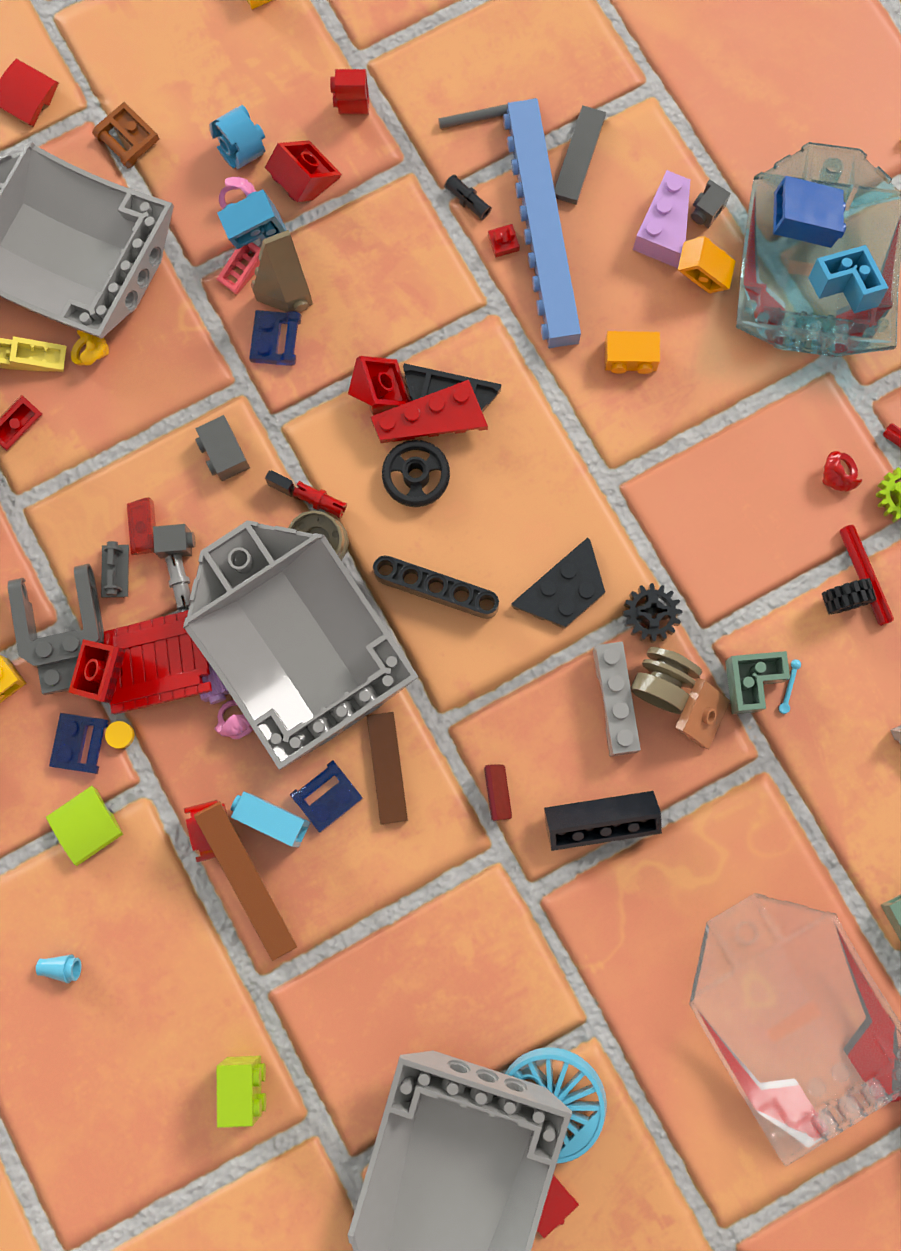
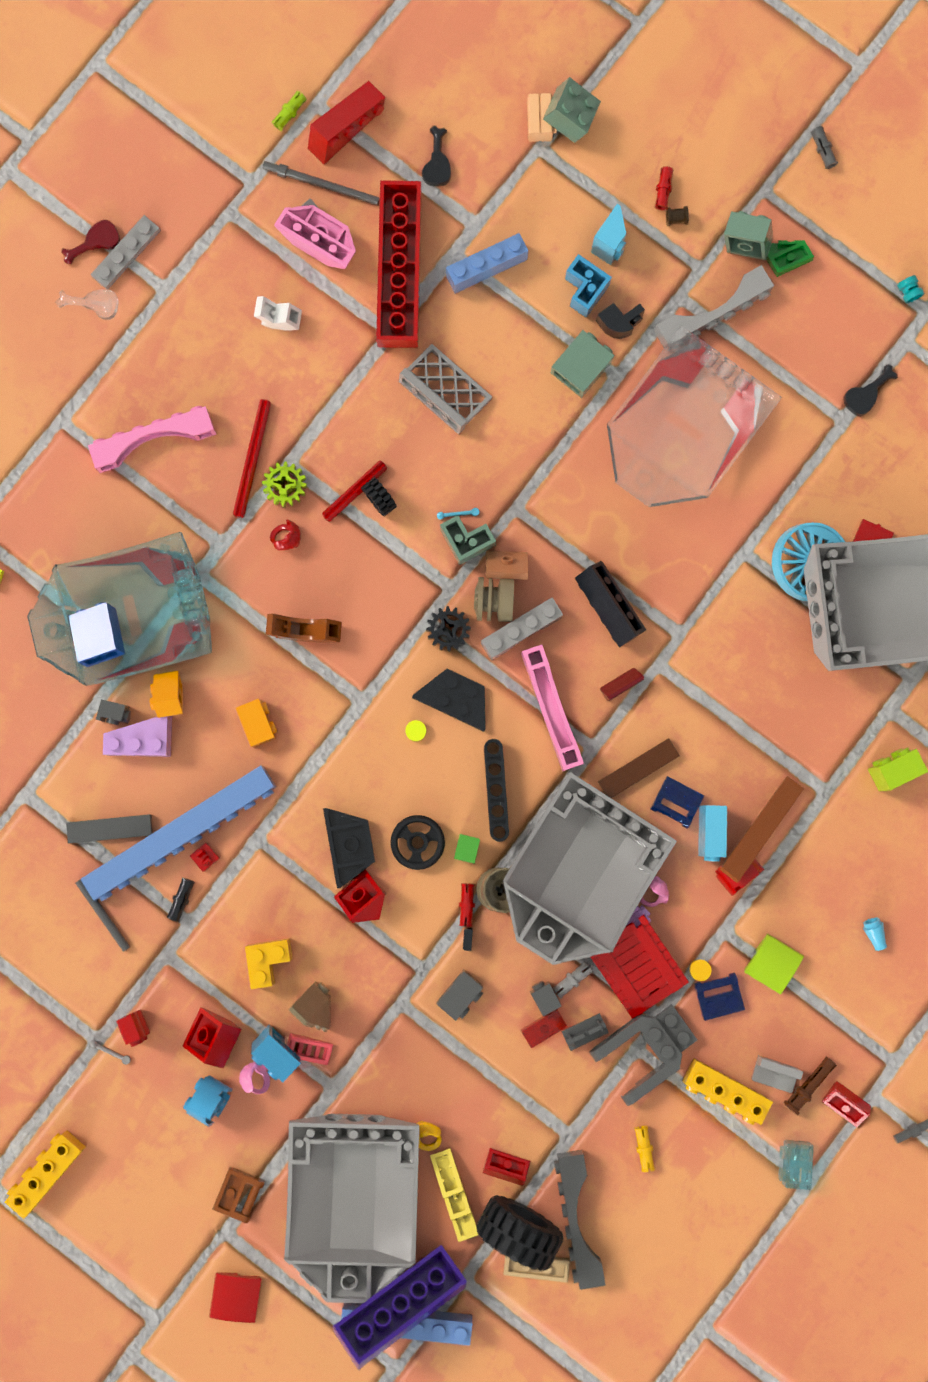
camera: 120 degrees left, 5 degrees up
(97, 671) = (667, 1004): red slope -> none
(267, 335) = (358, 1003): clear blue plate -> none
(322, 79) = (125, 1059): none -> light grey hinge
(363, 255) = (260, 961): none -> yellow brick
(382, 523) = (467, 848): none -> bright green panel
(438, 413) = (369, 848): red wing -> none
(505, 694) = (551, 708): none -> bright pink arch
(546, 526) = (415, 730): none -> neon yellow tile
(722, 442) = (303, 629): none -> dark orange arch
(851, 273) = (138, 582): dark azure brick -> none

